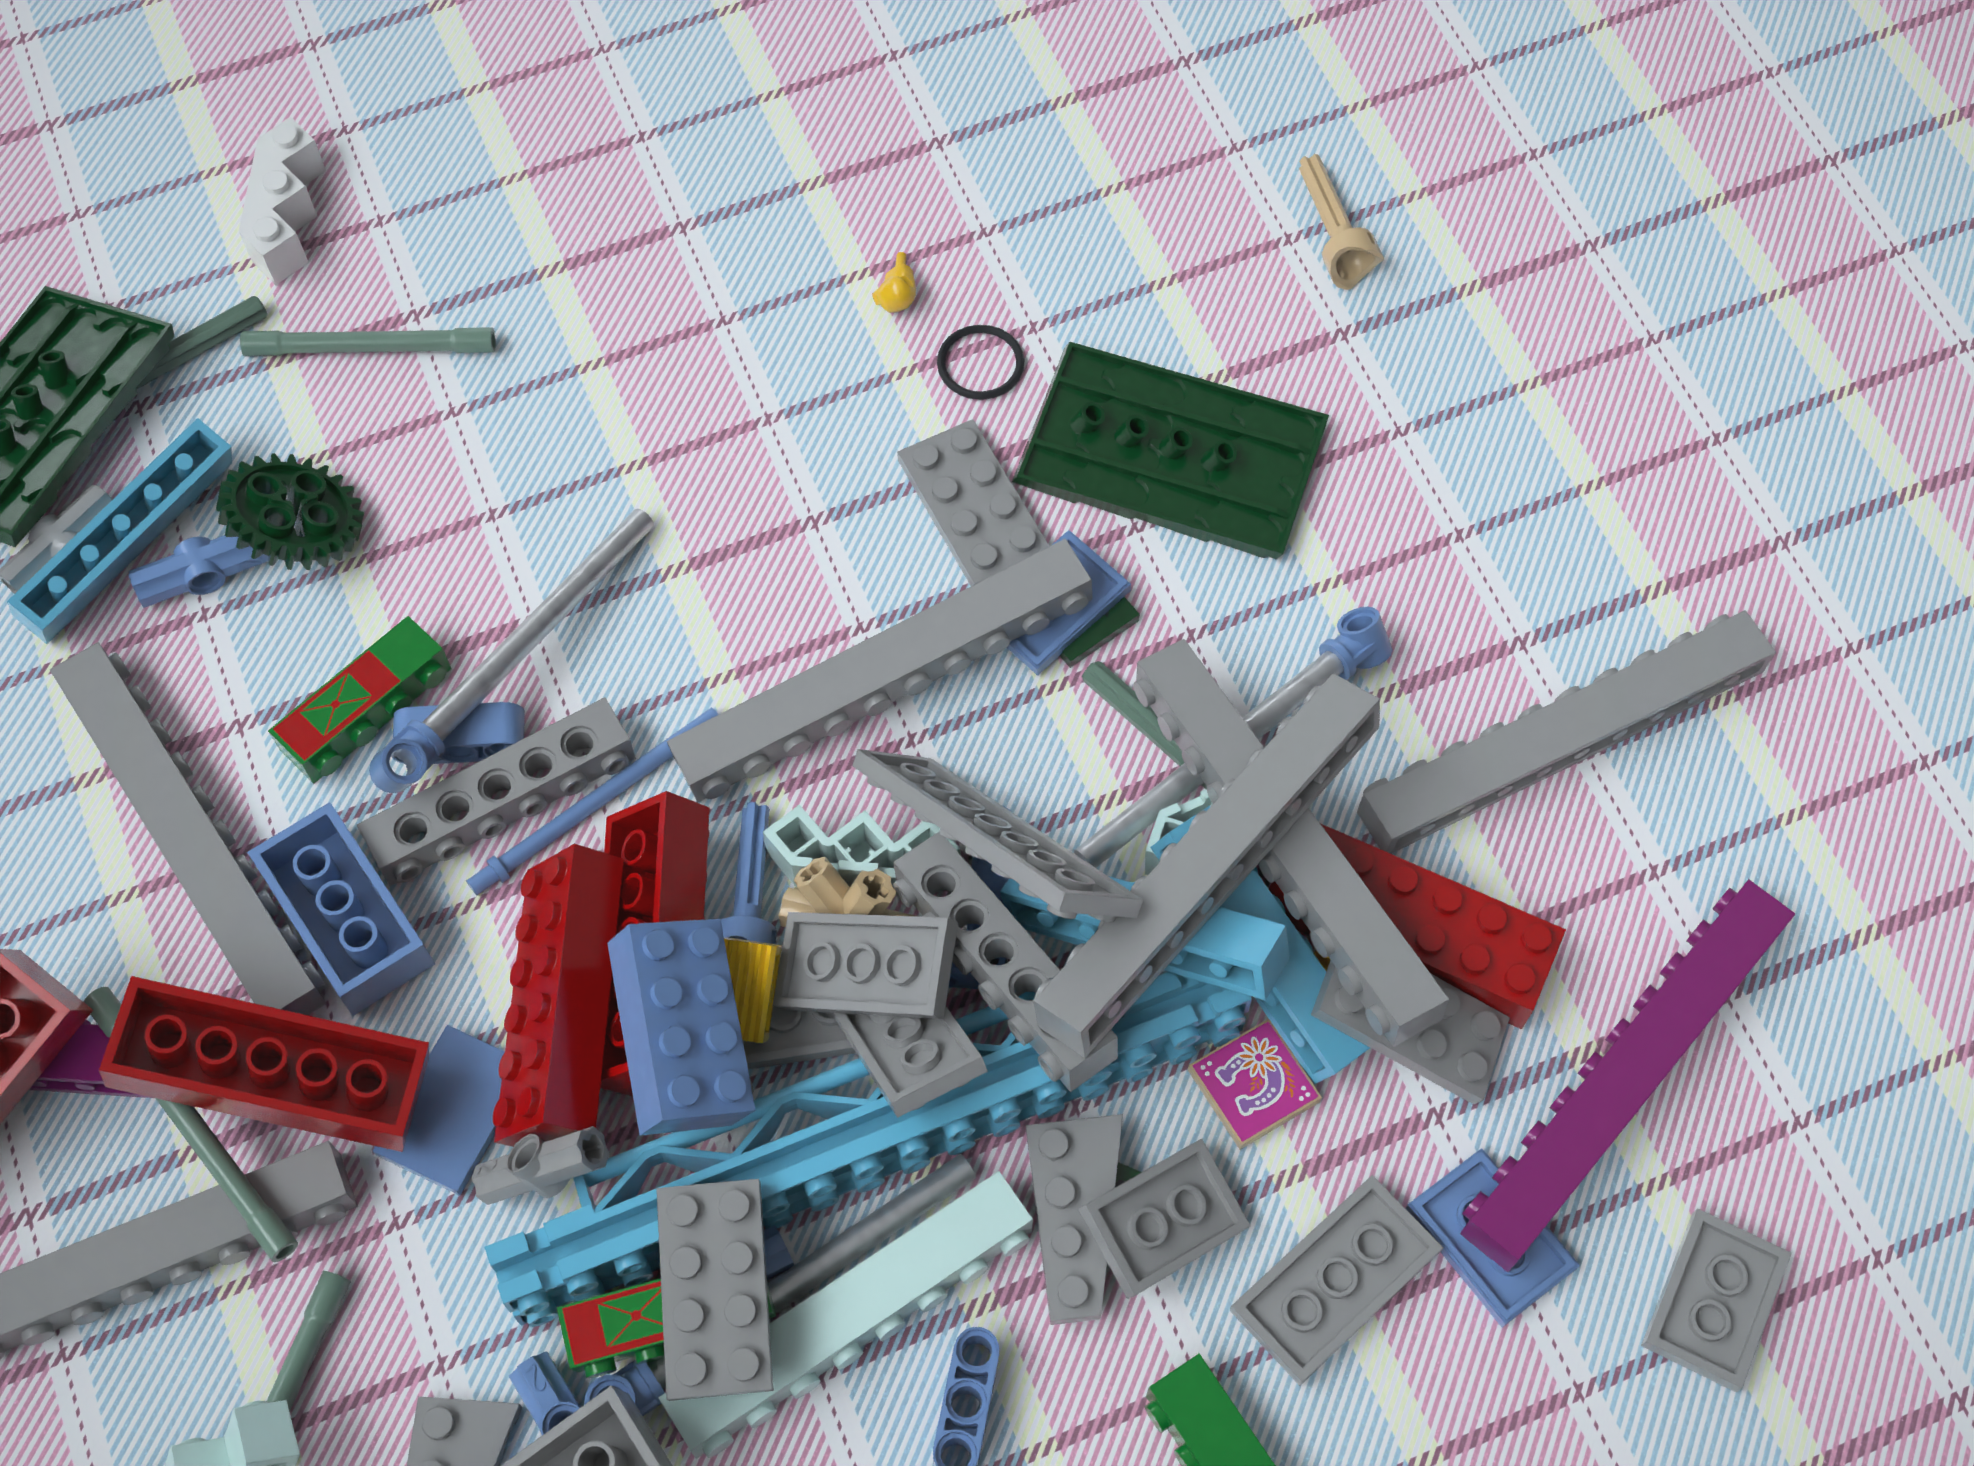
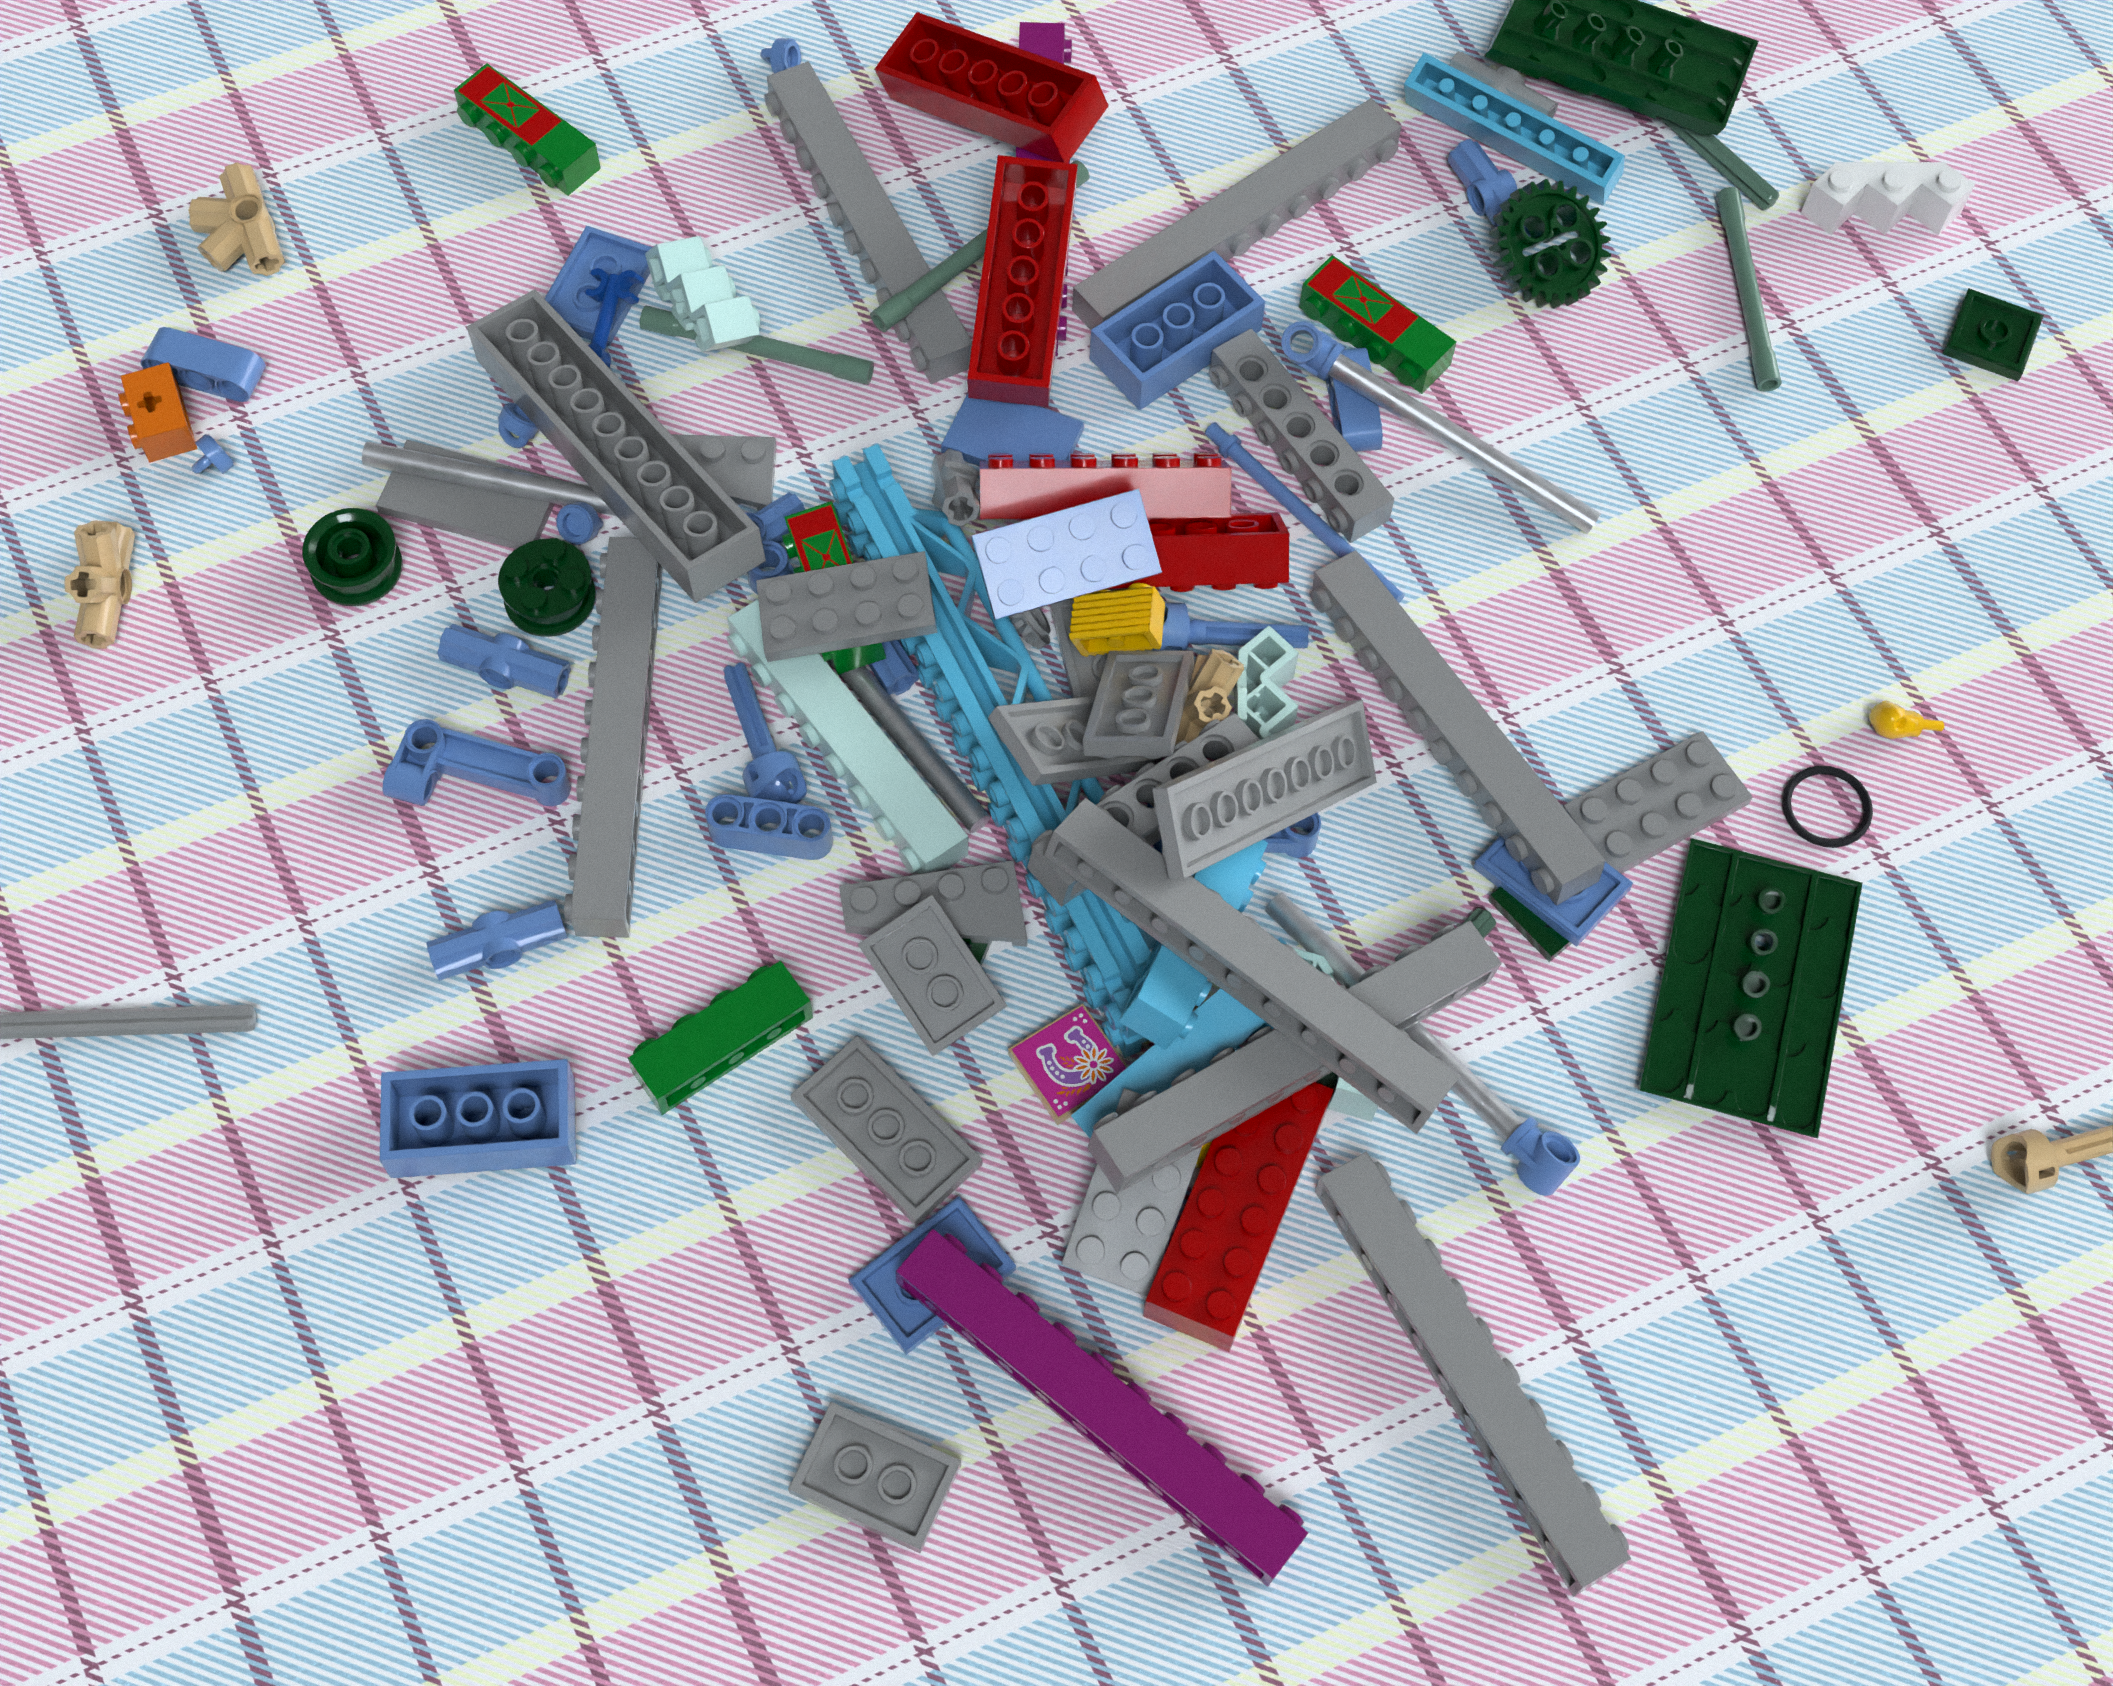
camera: 85 degrees right, 0 degrees up
(459, 143) = (1993, 334): none -> dark green tile
(902, 1400) = (771, 769): none -> medium blue piece

